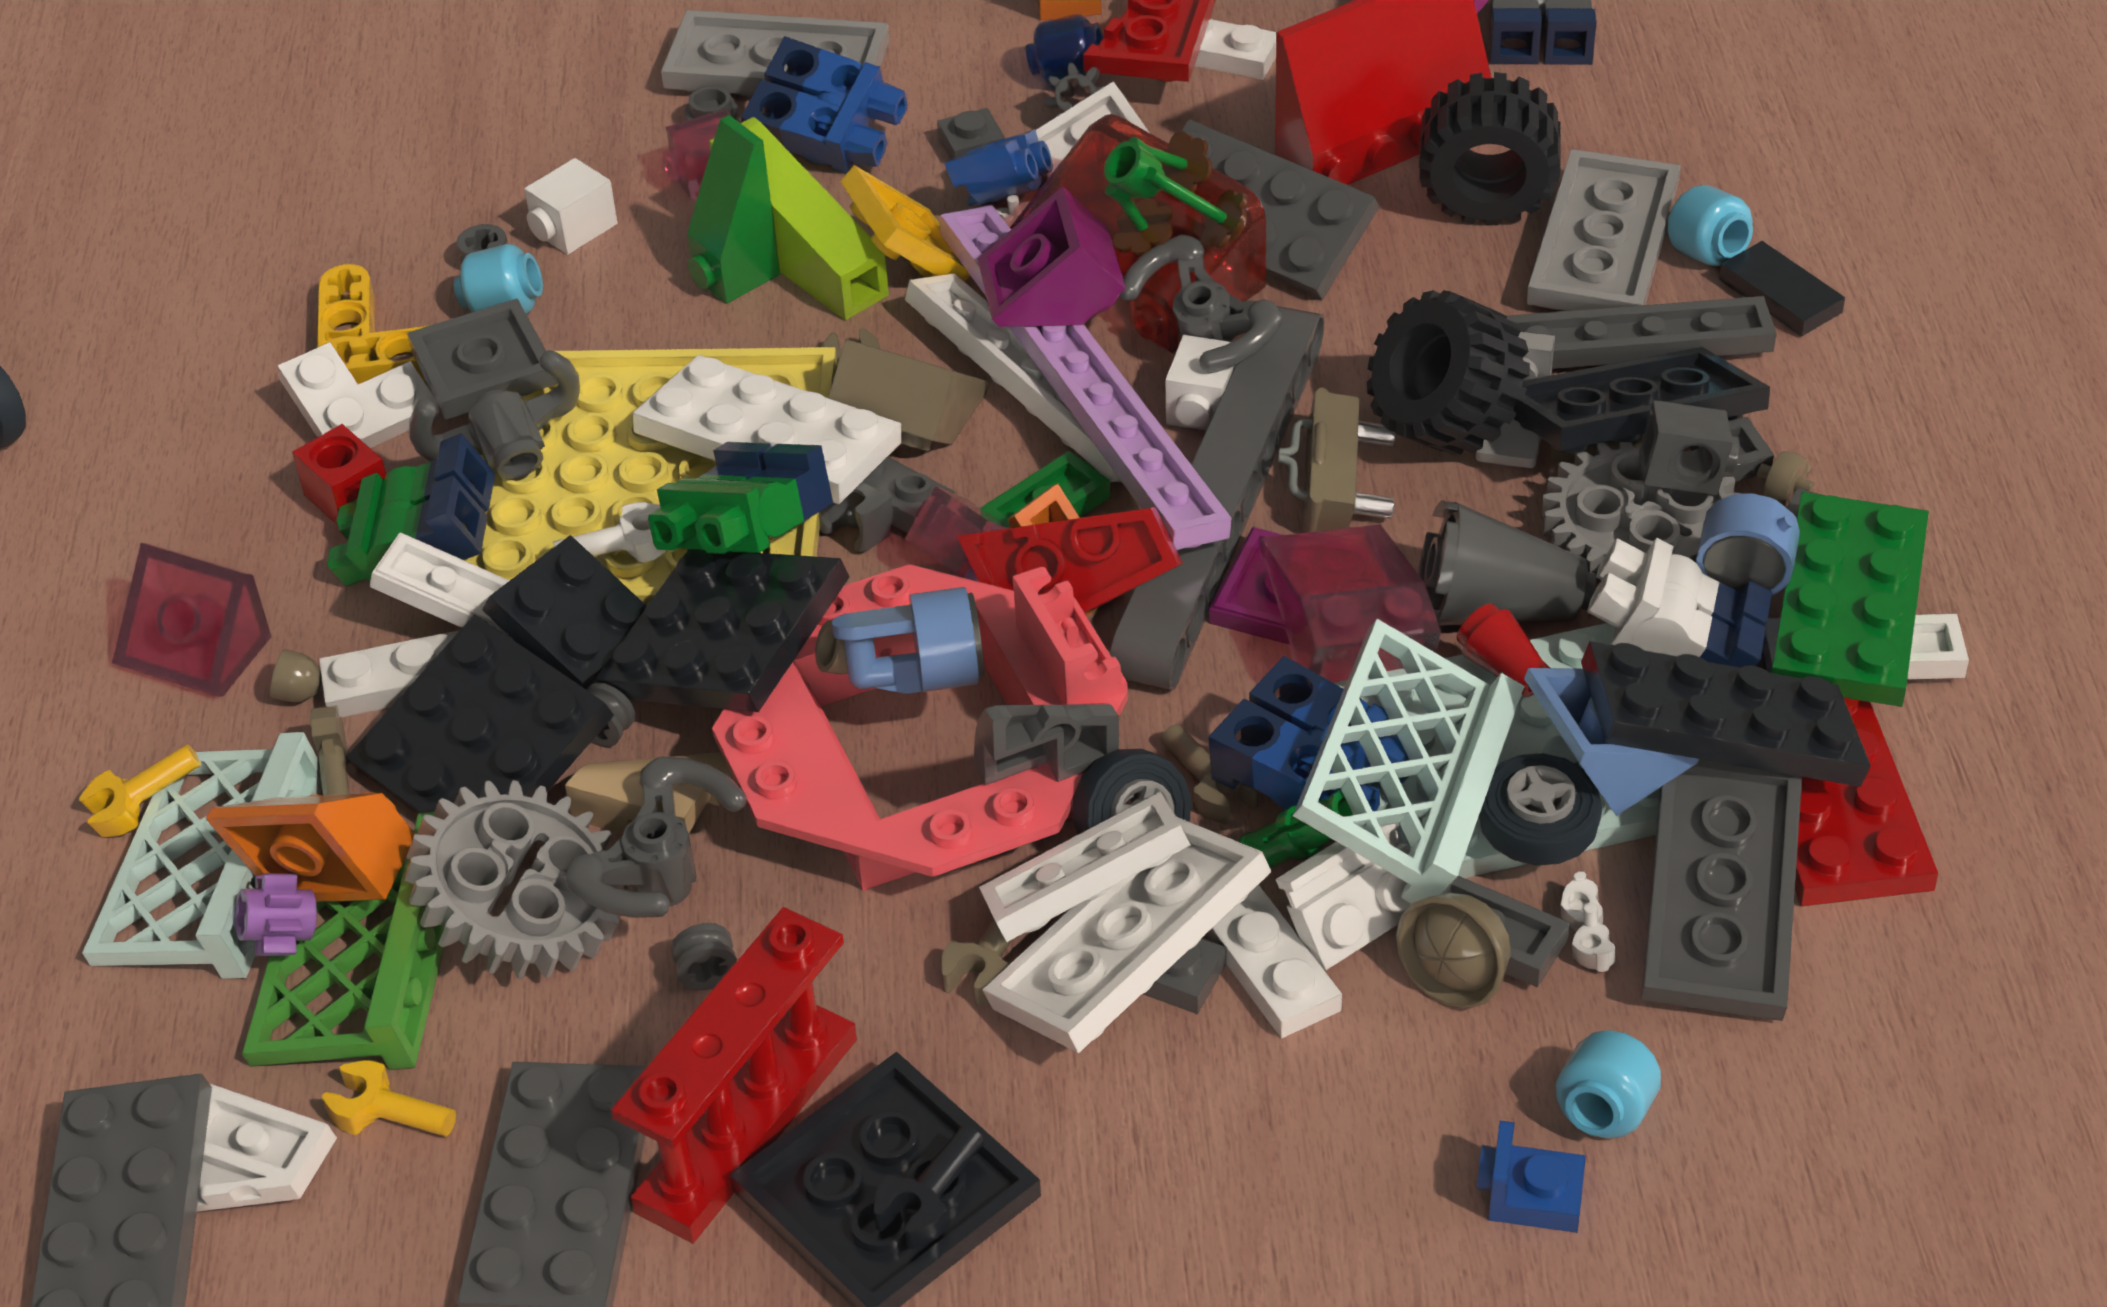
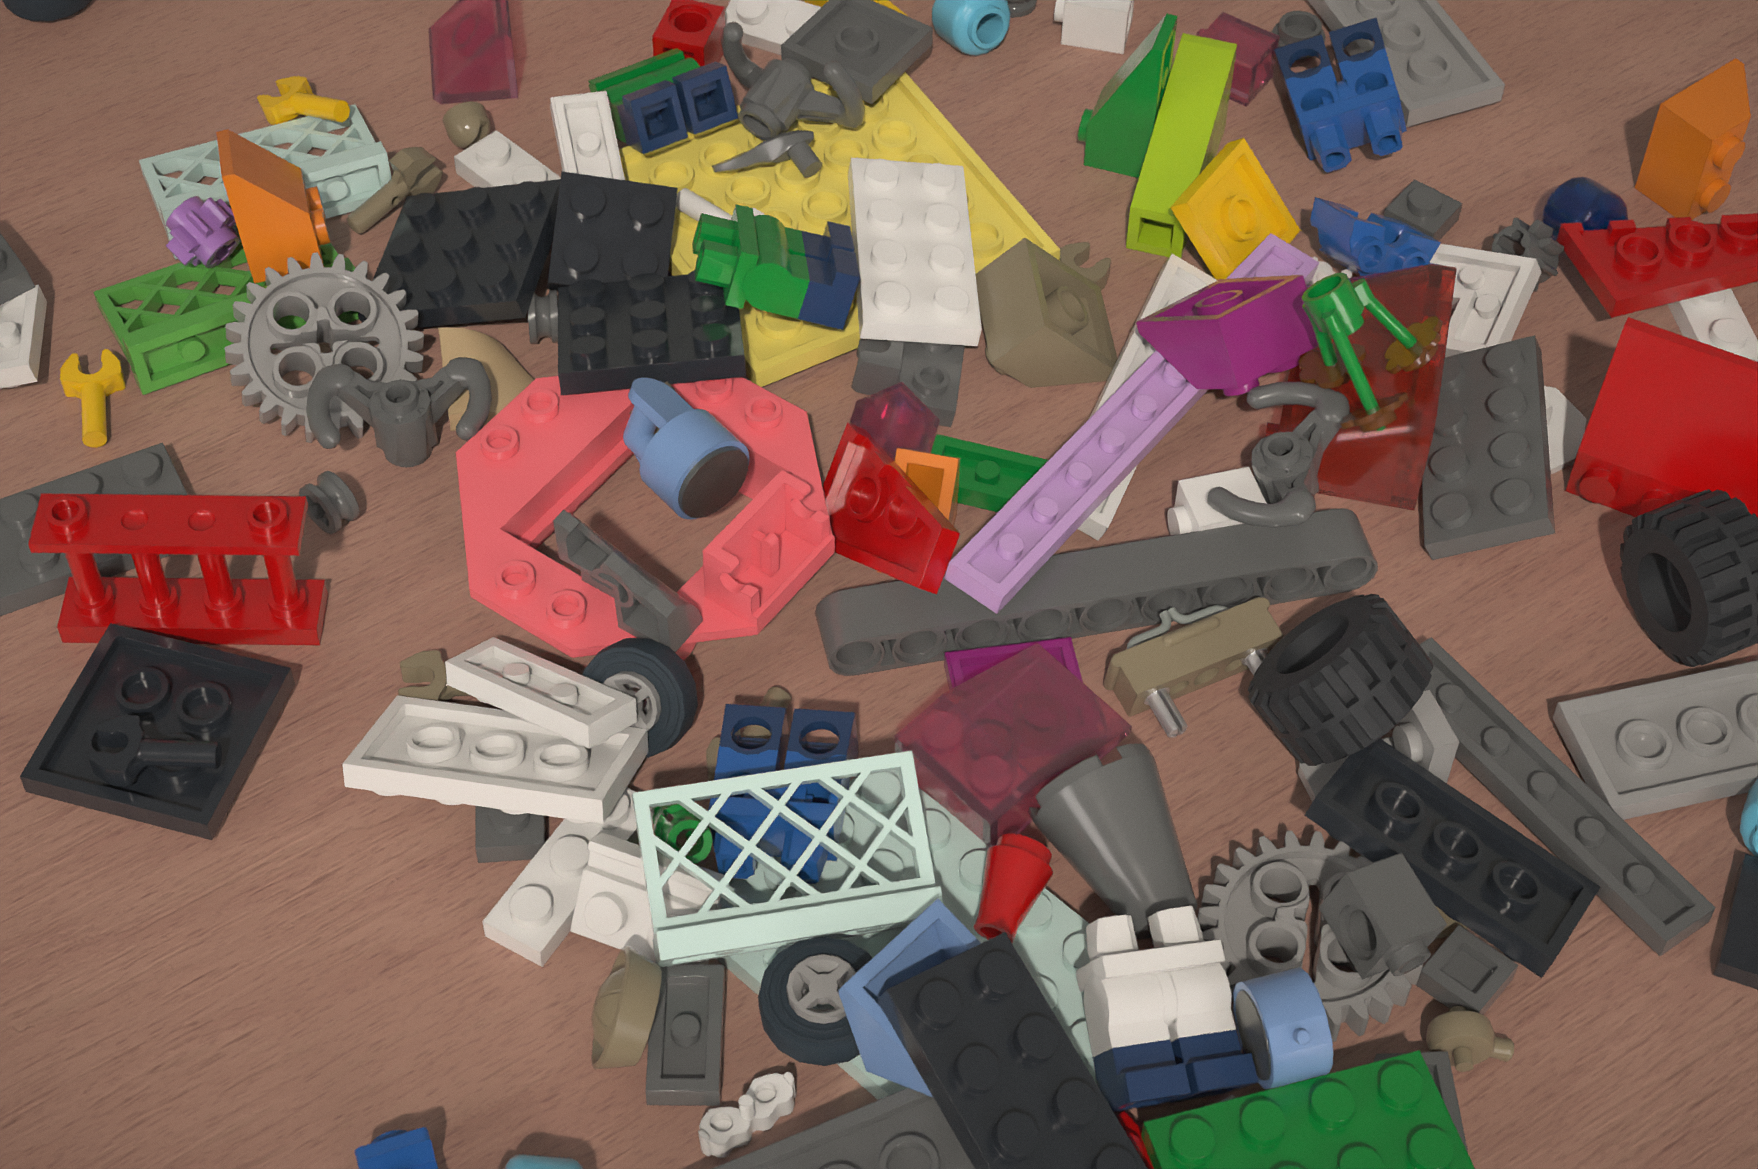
camera: 55 degrees right, 5 degrees up
(558, 468) = (779, 148): none -> dark grey bar

